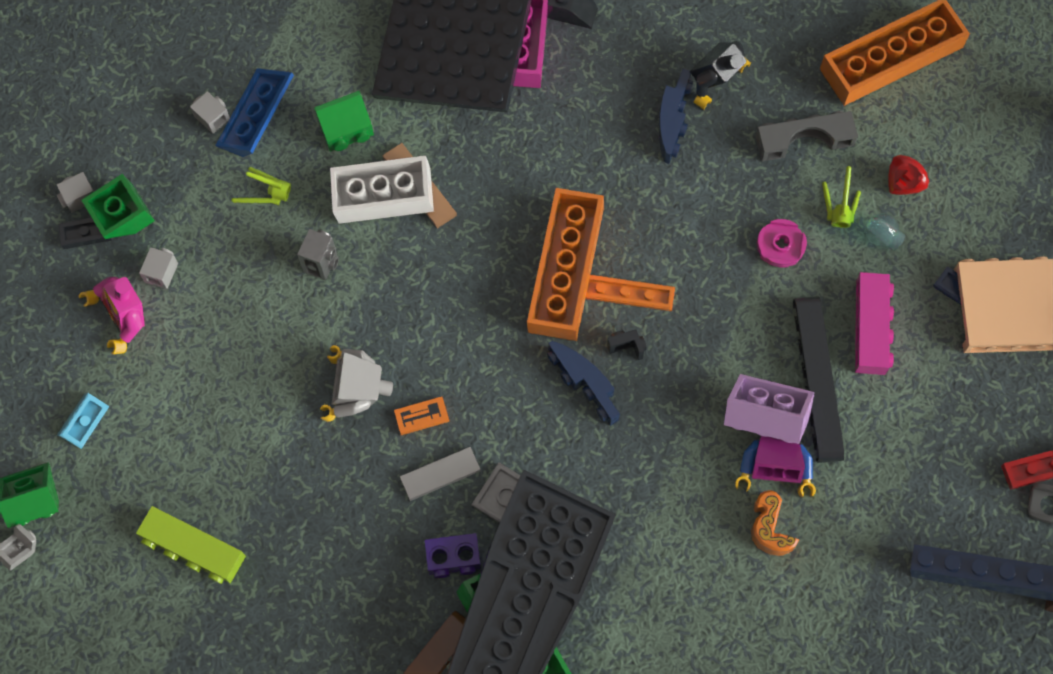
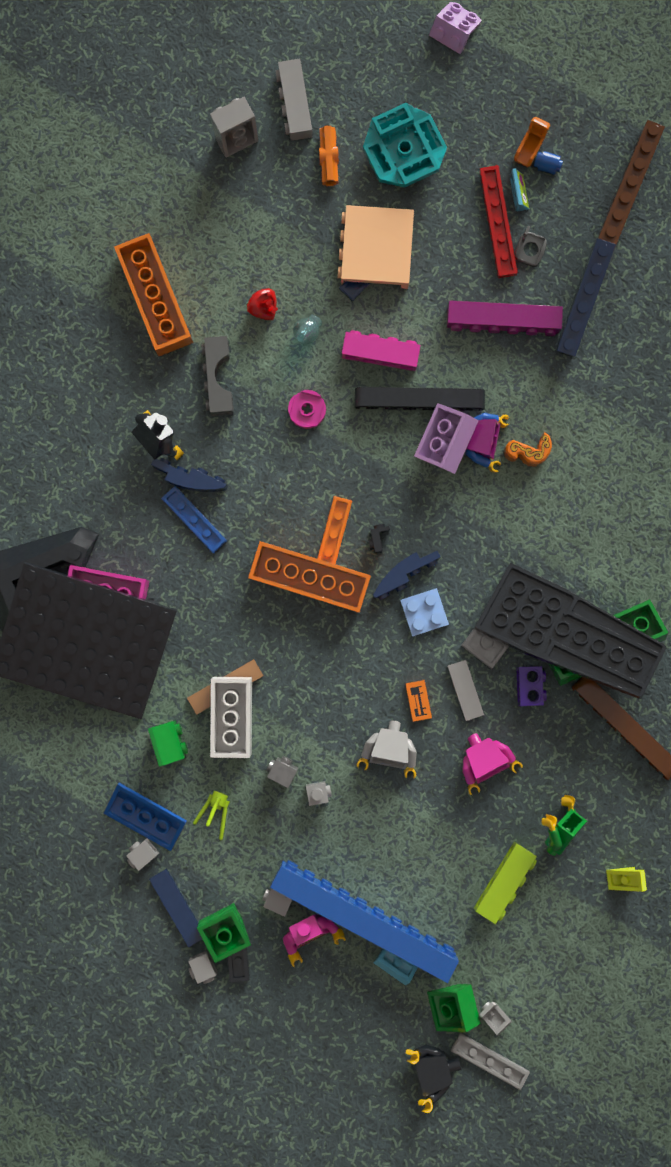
camera: 85 degrees left, 15 degrees up
(135, 371) = (365, 921): none -> blue brick
(151, 156) = (176, 907): none -> dark blue tile
(261, 612) = (566, 830): none -> green torso
(294, 301) = (318, 793): none -> light grey brick
(349, 503) = (486, 760): none -> dark pink torso
(537, 412) = (424, 612): none -> light blue plate
(622, 129) = (194, 519): none -> blue tile
(842, 215) = (289, 359): lime plant -> none
(948, 475) = (504, 317): none -> magenta brick

